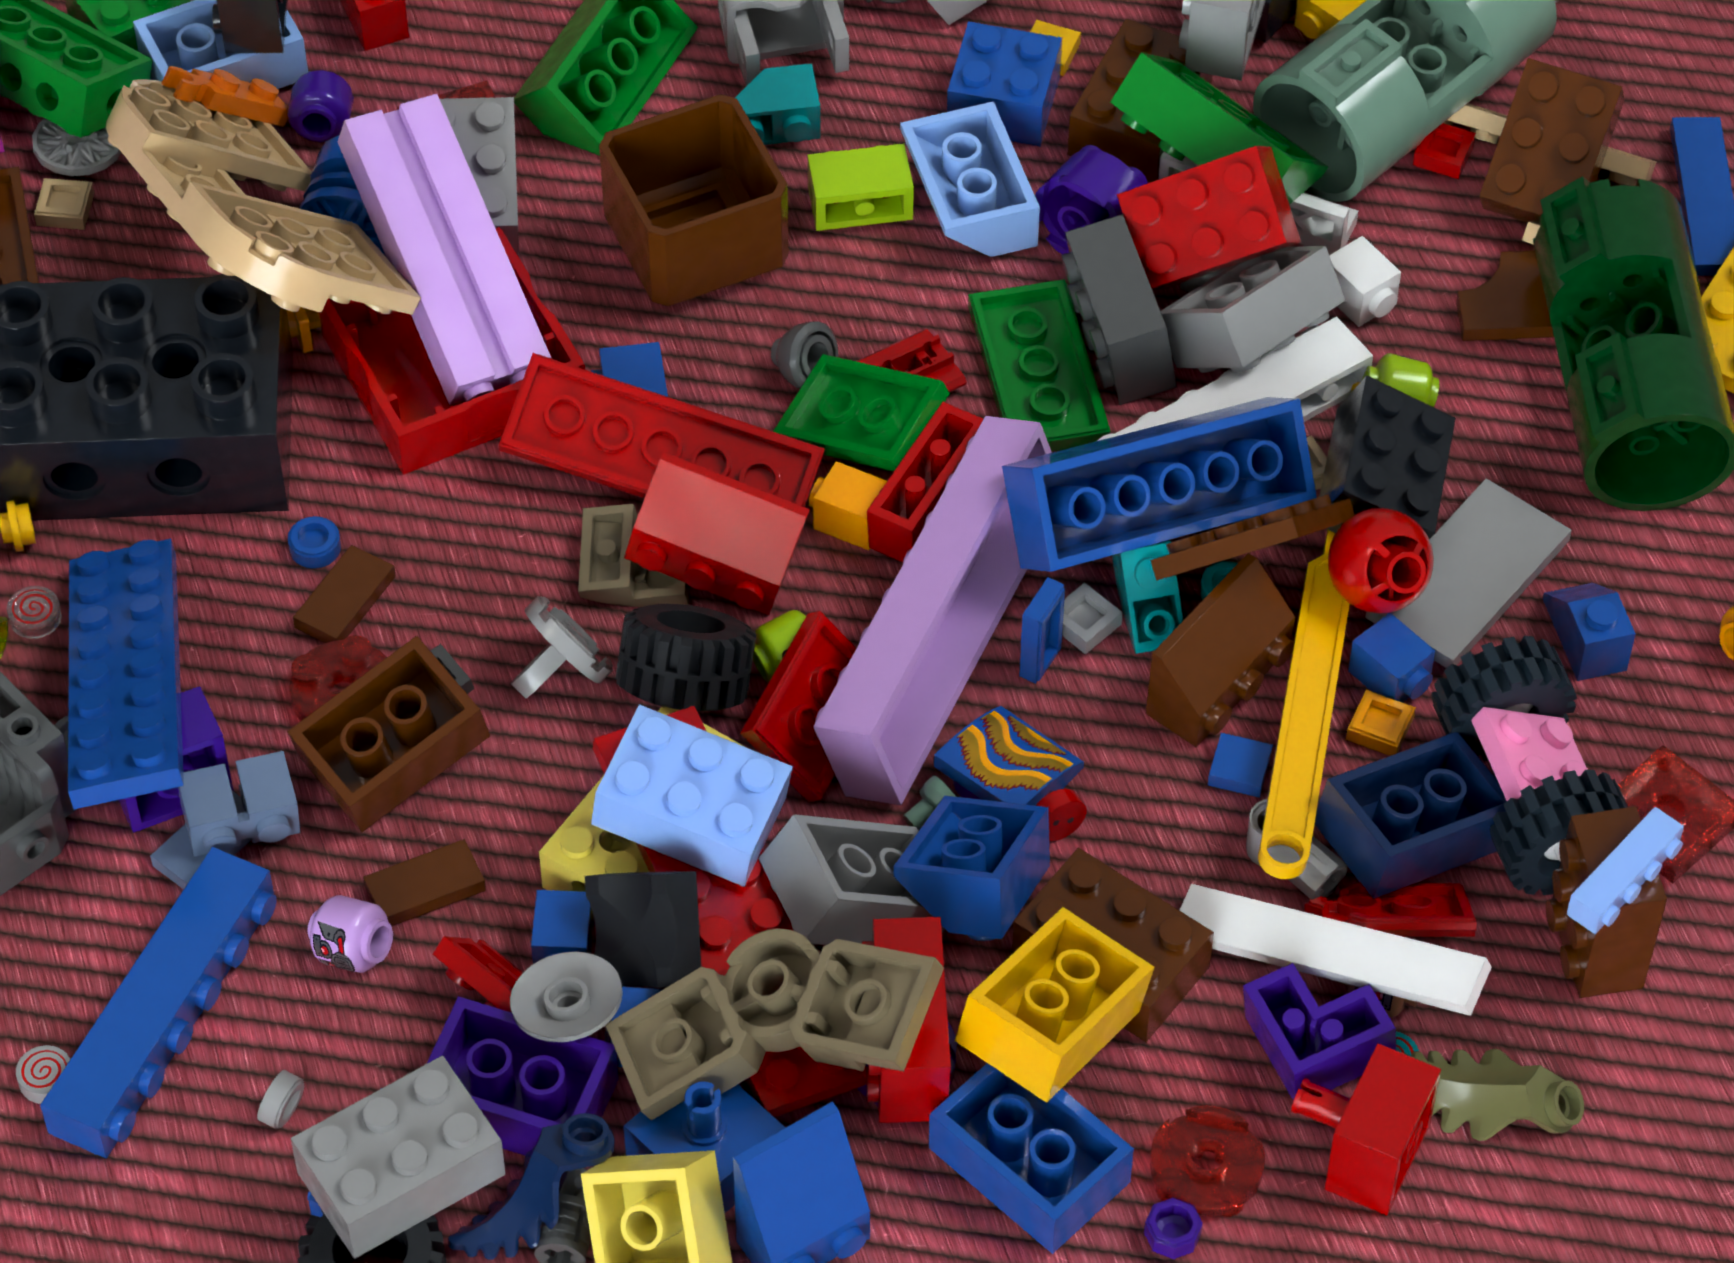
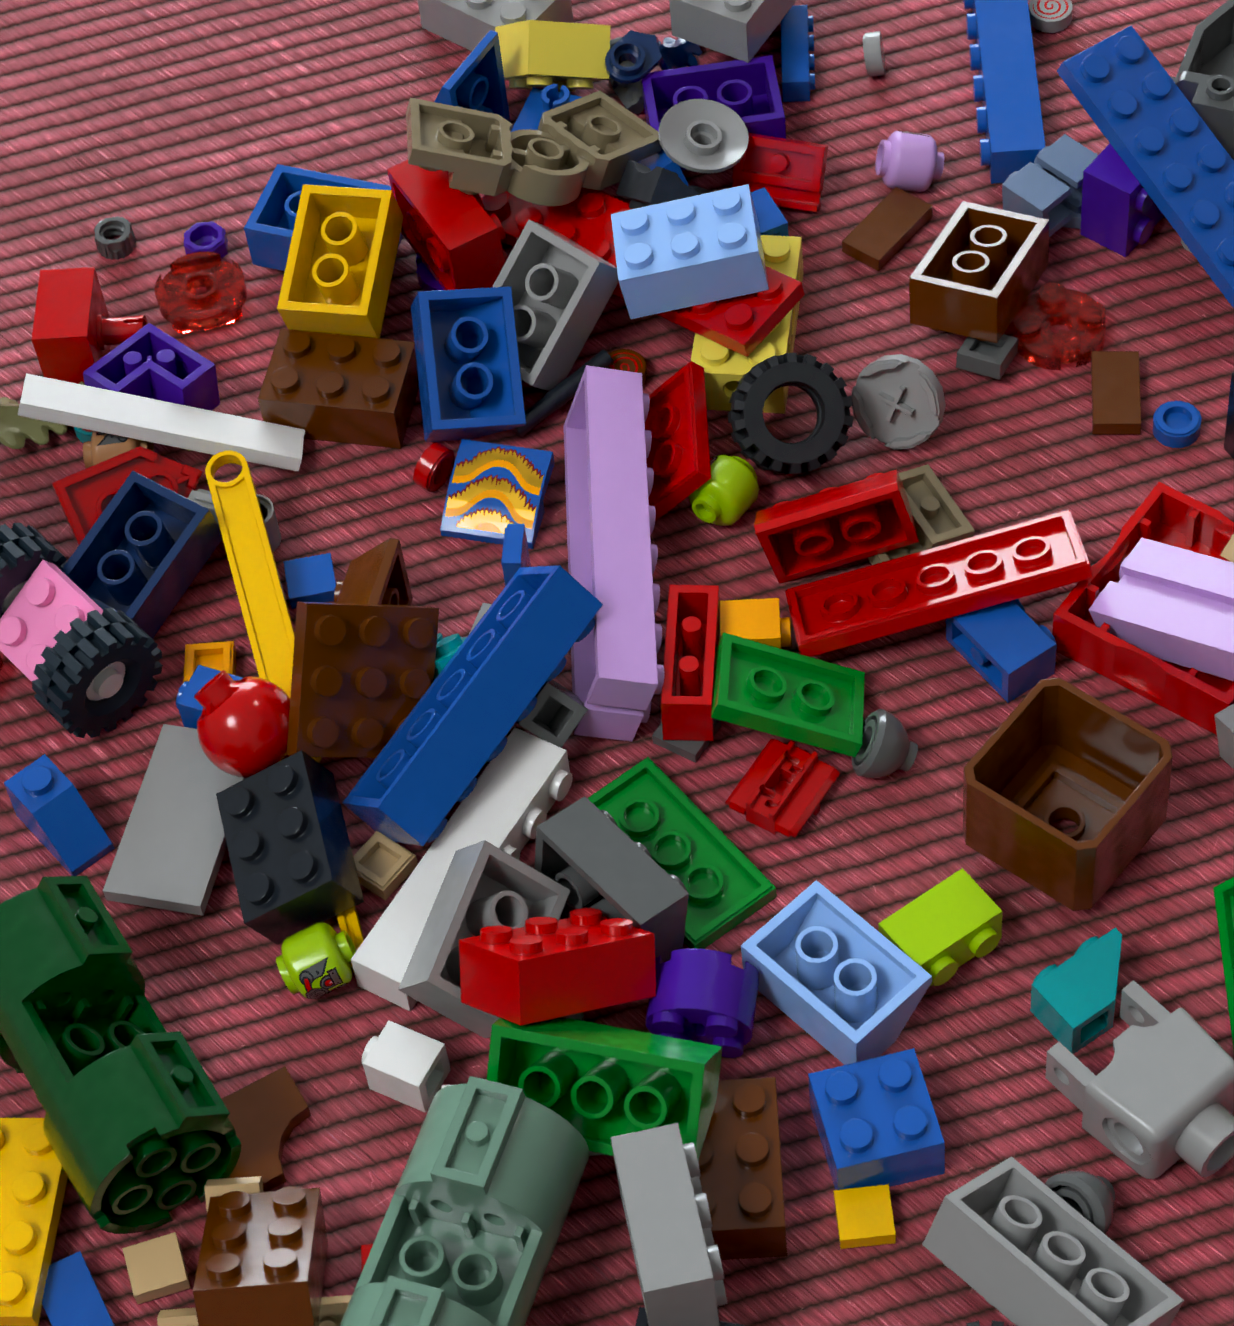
camera: 160 degrees right, 0 degrees up
(931, 793) = (542, 437): sand green piece -> none

